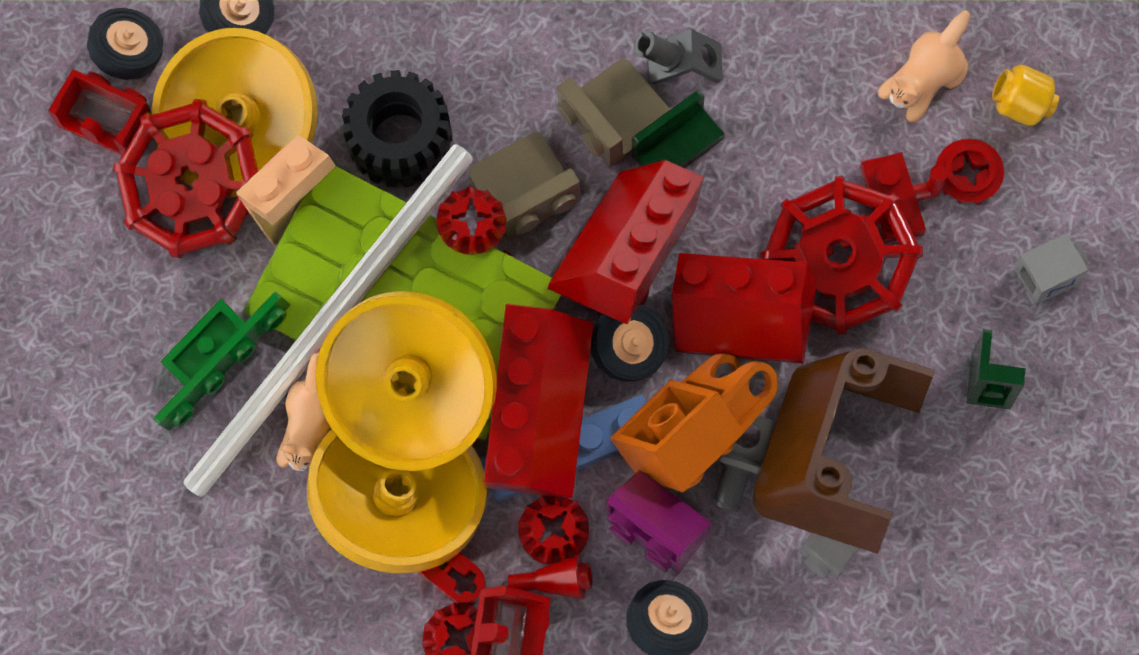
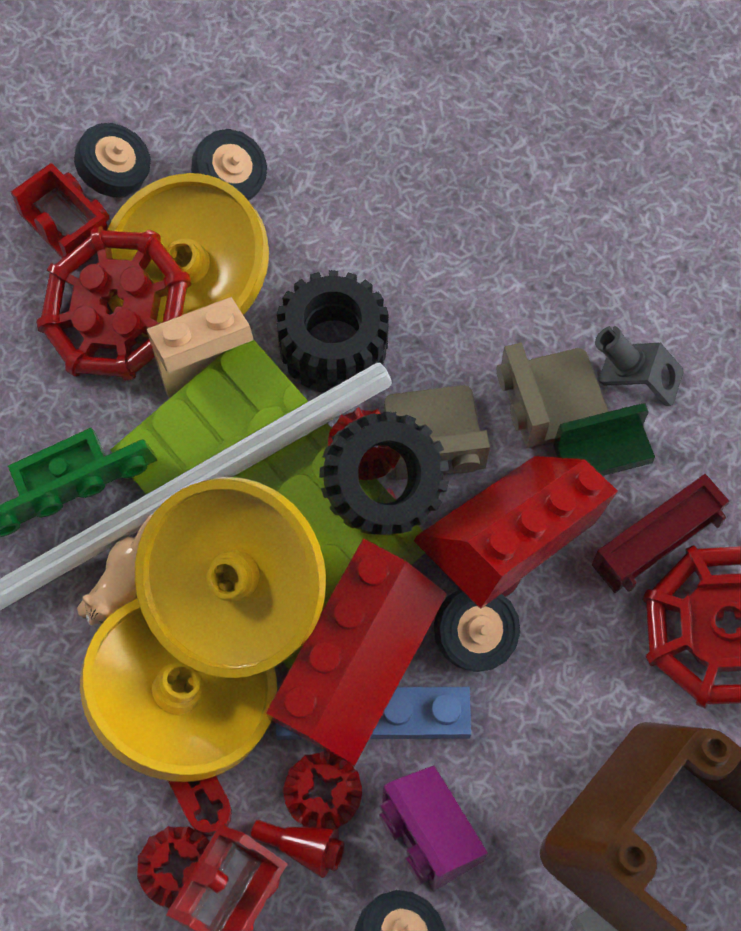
camera: 15 degrees right, 5 degrees down
(535, 233) = (423, 468): none -> black tyre
(694, 422) = (511, 738): orange brick -> none
(738, 466) = (542, 797): dark grey bracket -> none
(742, 307) = (608, 638): red slope -> none
(754, 198) = (660, 533): none -> dark red container

